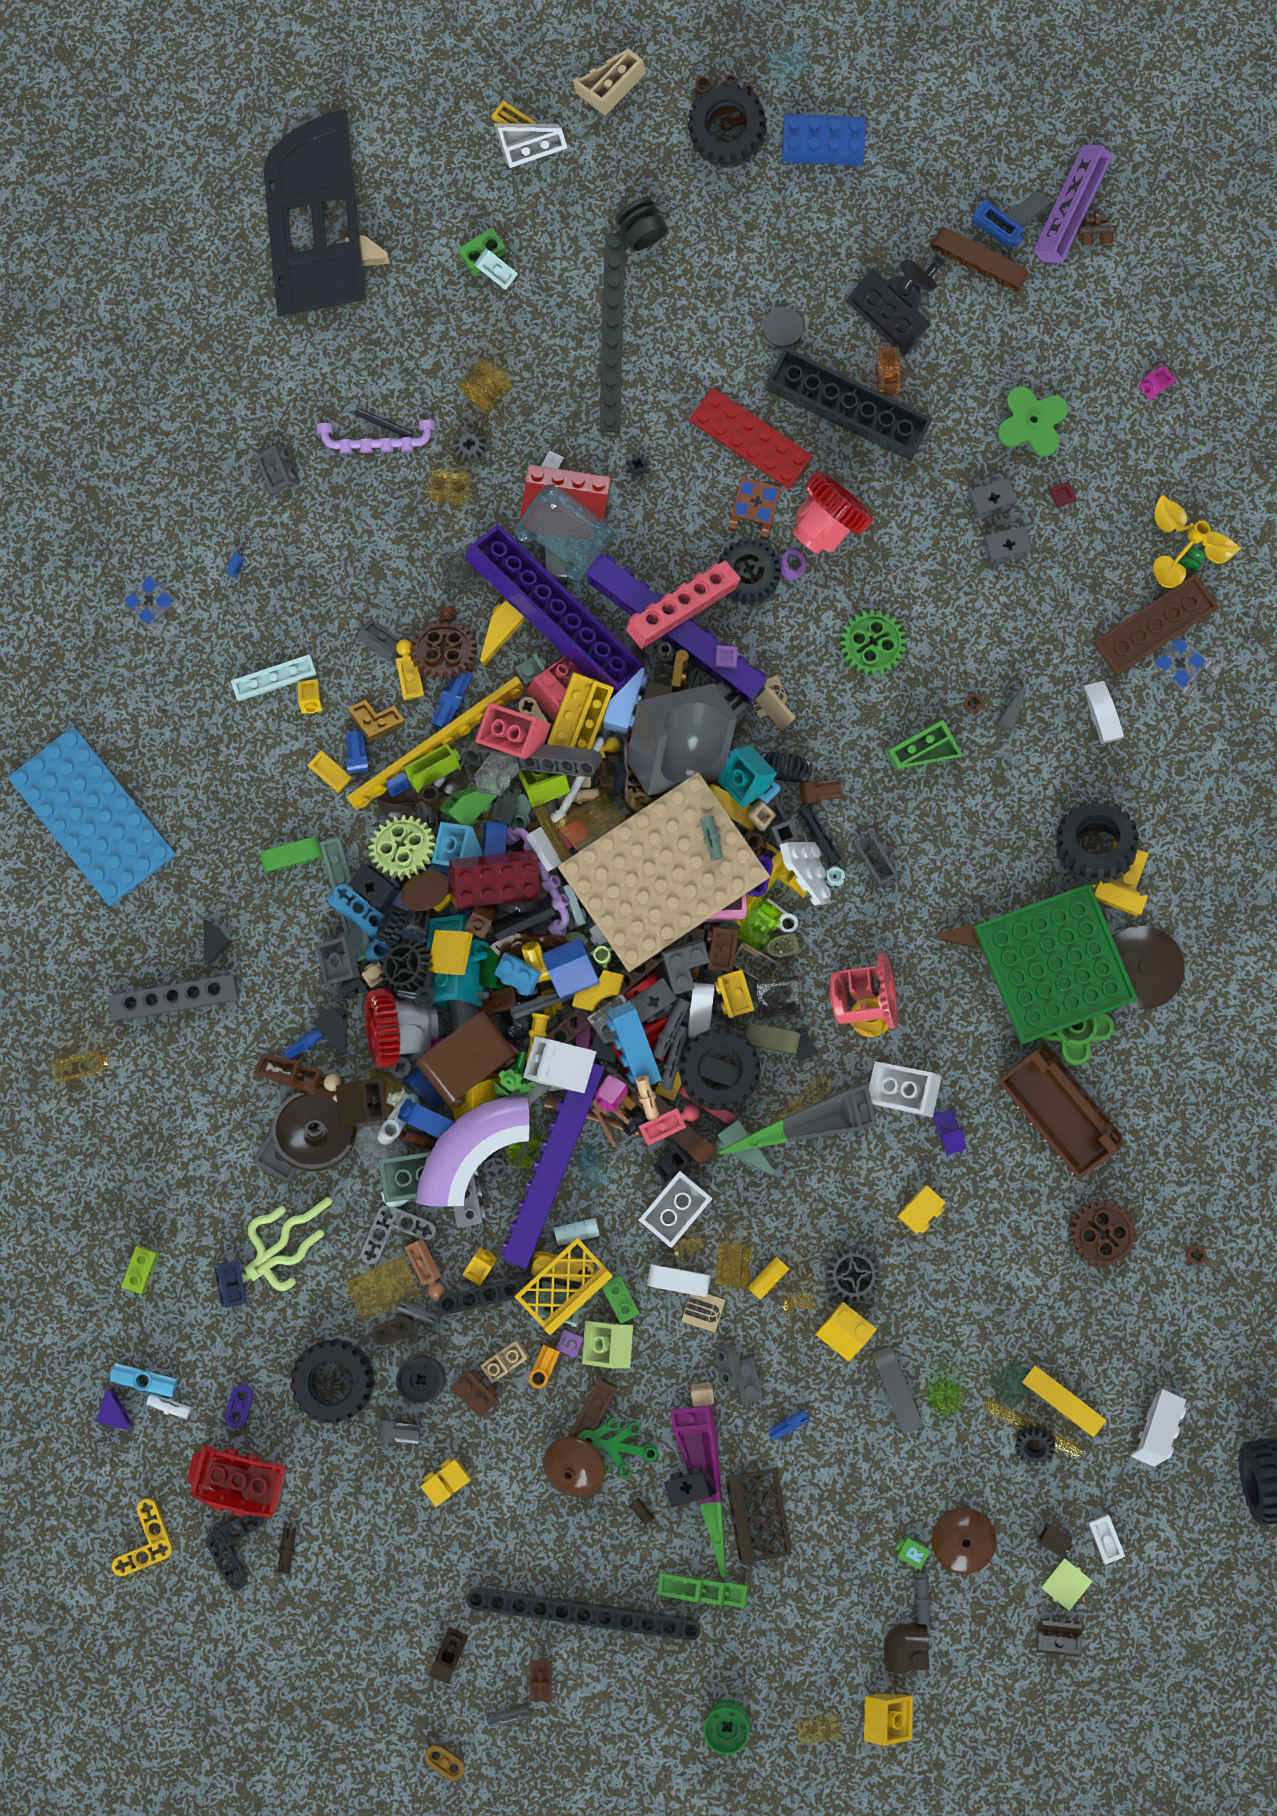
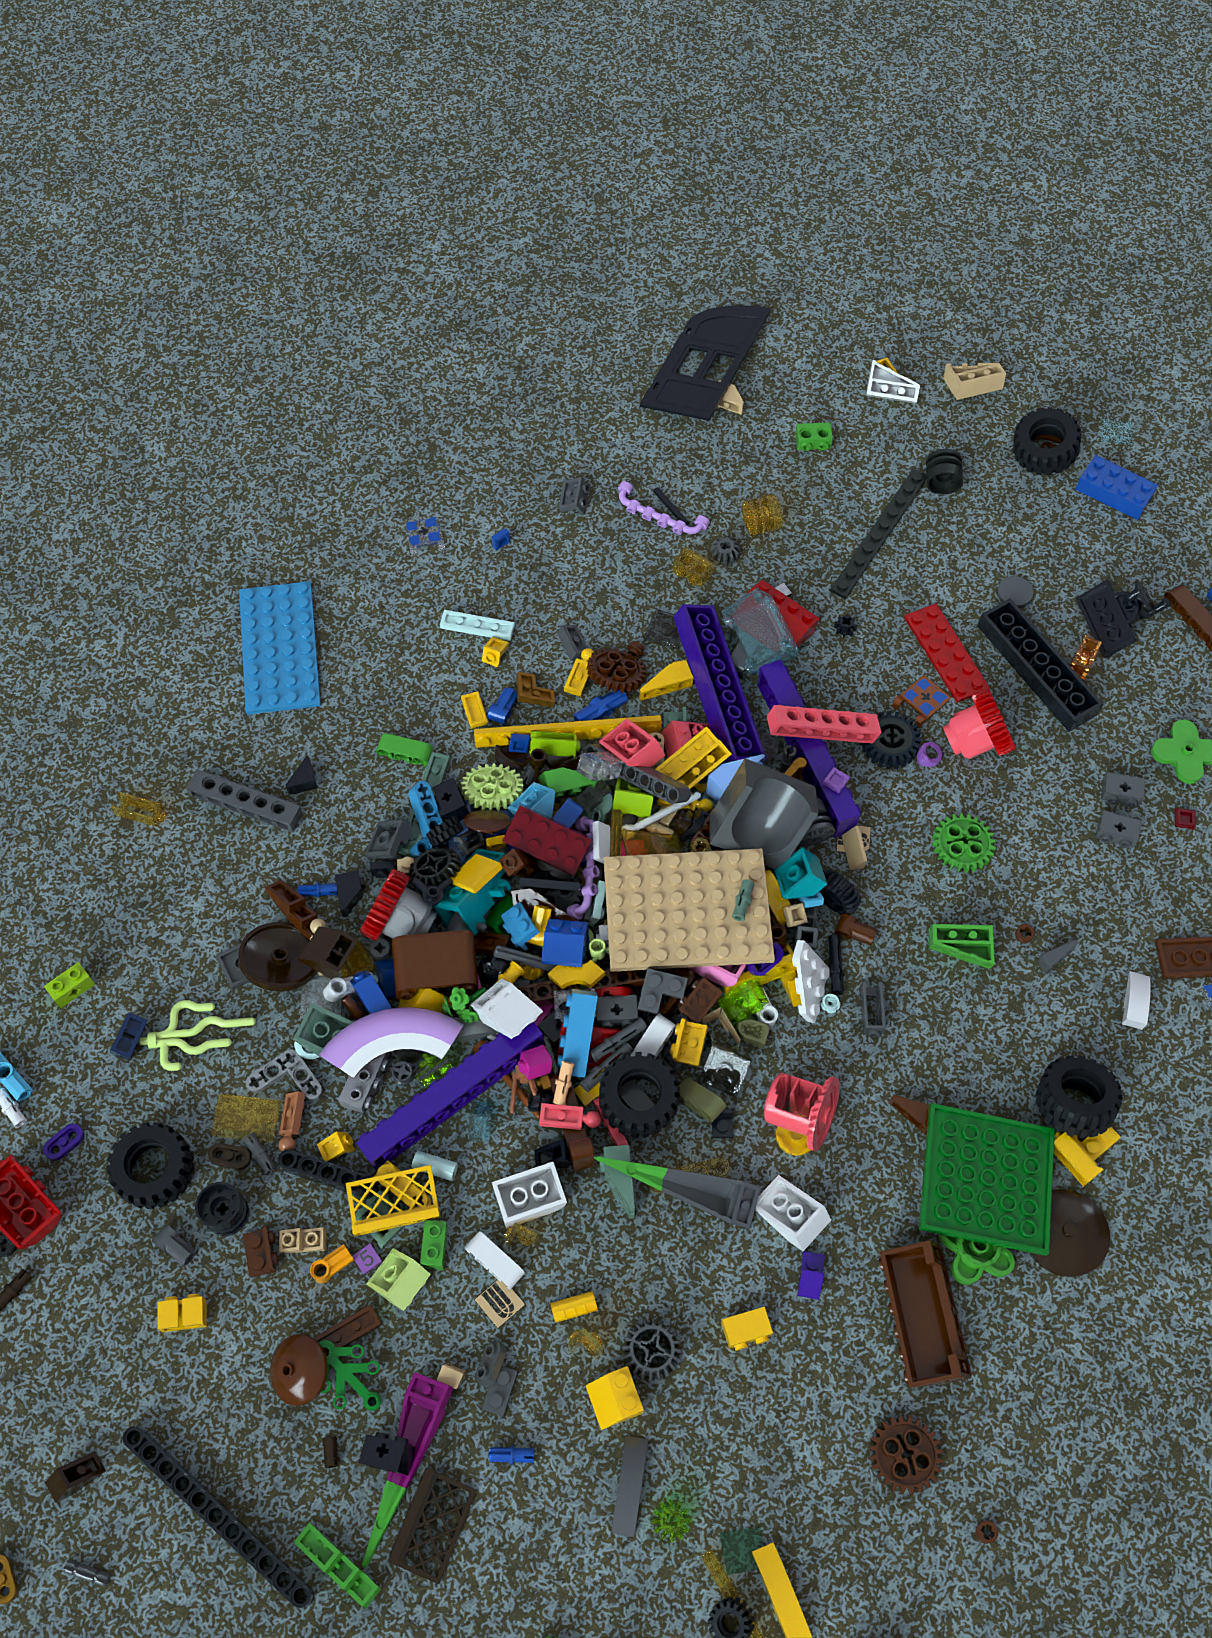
camera: 30 degrees right, 20 degrees down
(495, 269) = (816, 449): light aqua plate -> none
(540, 1680) = (136, 1555): reddish brown hips -> none
(733, 1265) = (550, 1276): clear yellow bracket -> none

